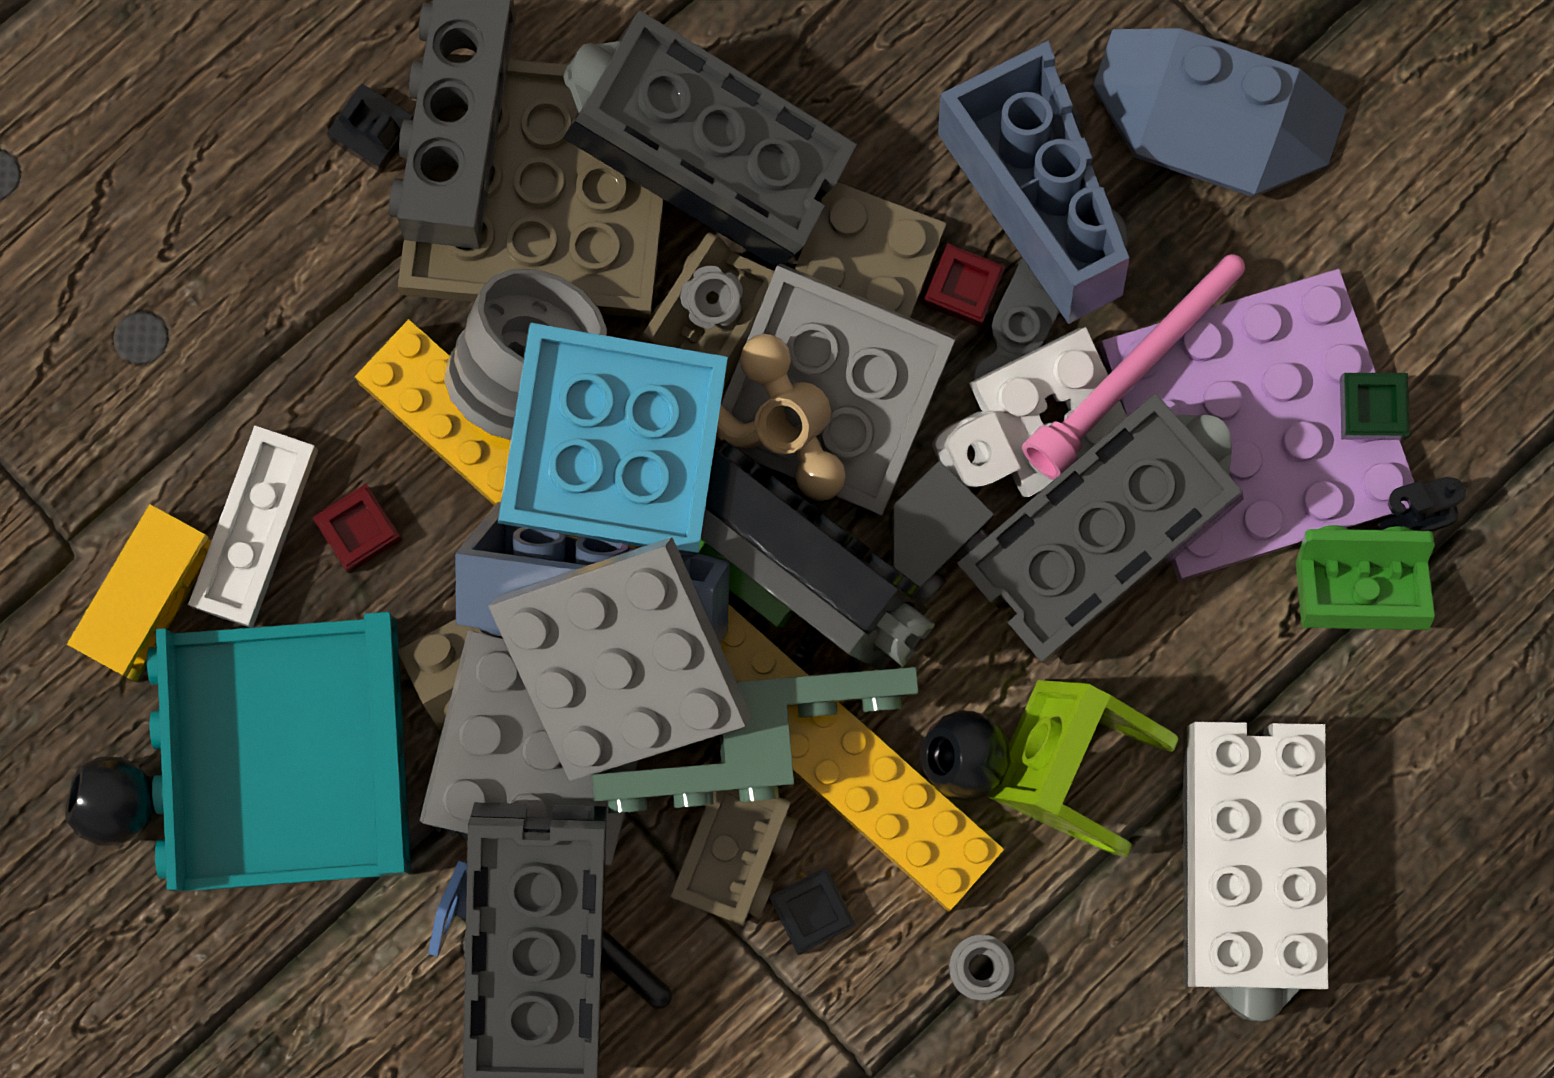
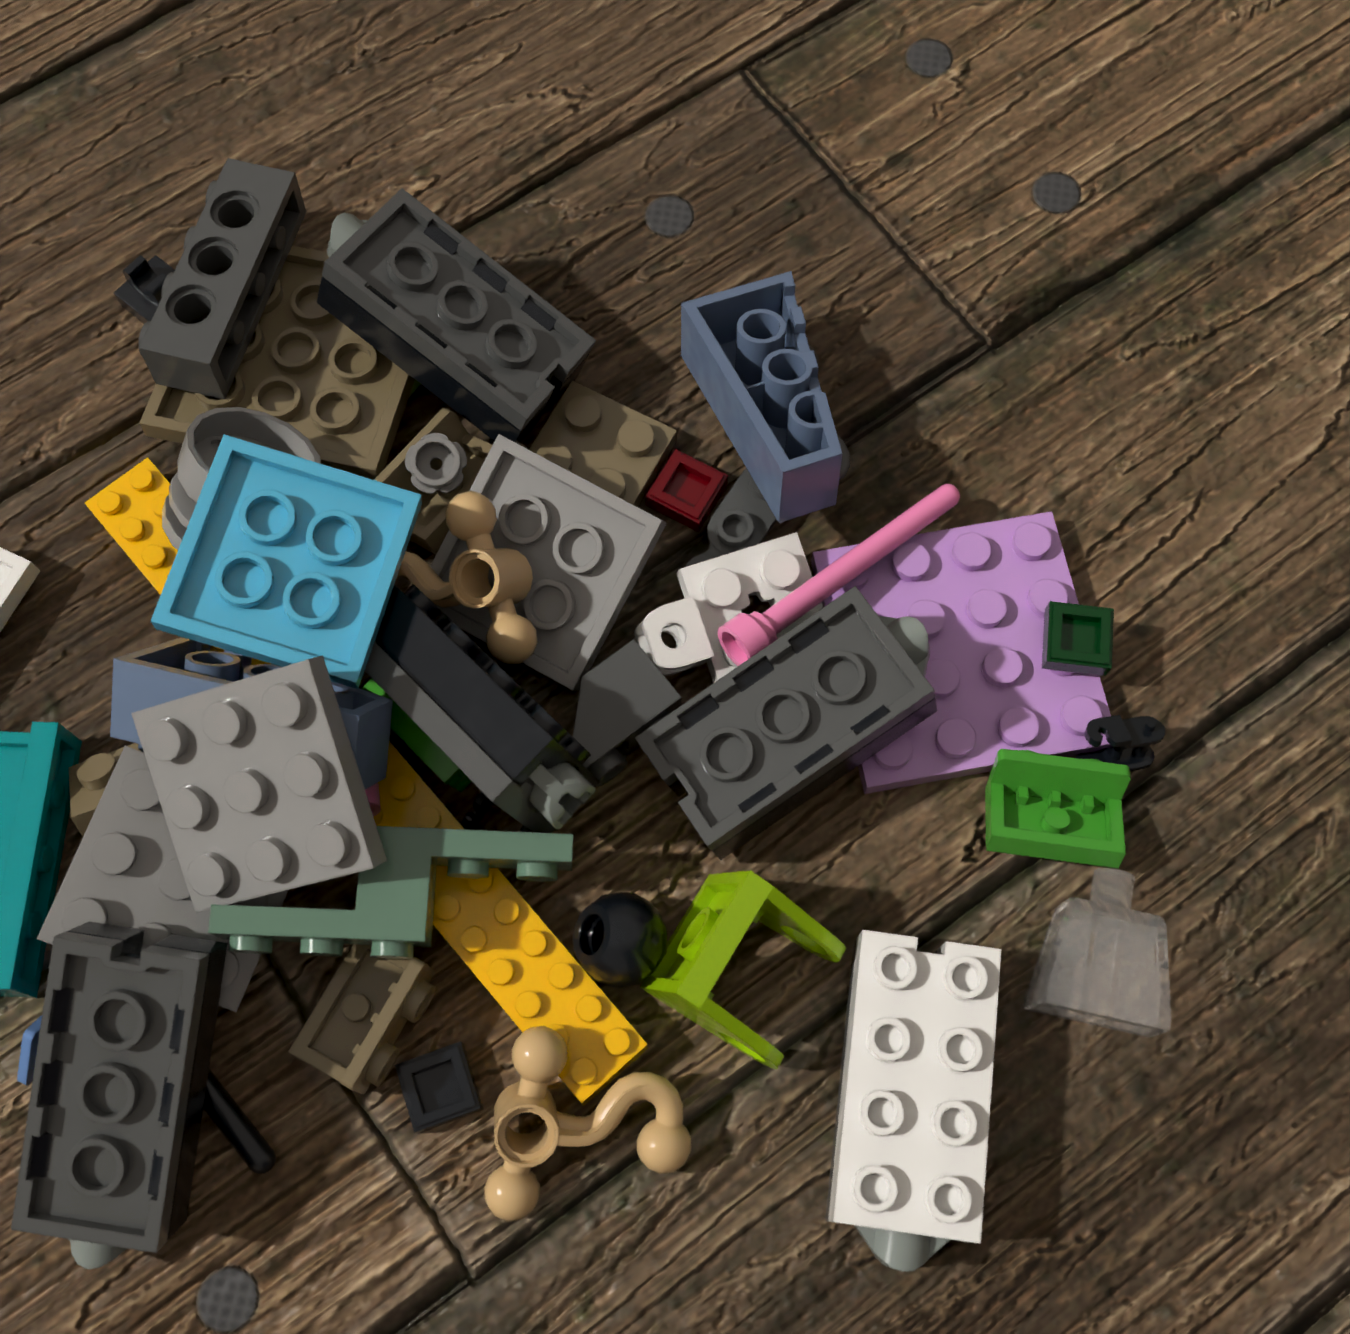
camera: 10 degrees right, 10 degrees down
(357, 528) = (60, 648): dark red tile -> none
(910, 874) = (539, 1057): none -> tan piece
(1002, 967) = (585, 1177): light grey plate -> none
(1216, 109) = (949, 356): sand blue wedge -> none
(1421, 720) = (1104, 961): none -> clear torso

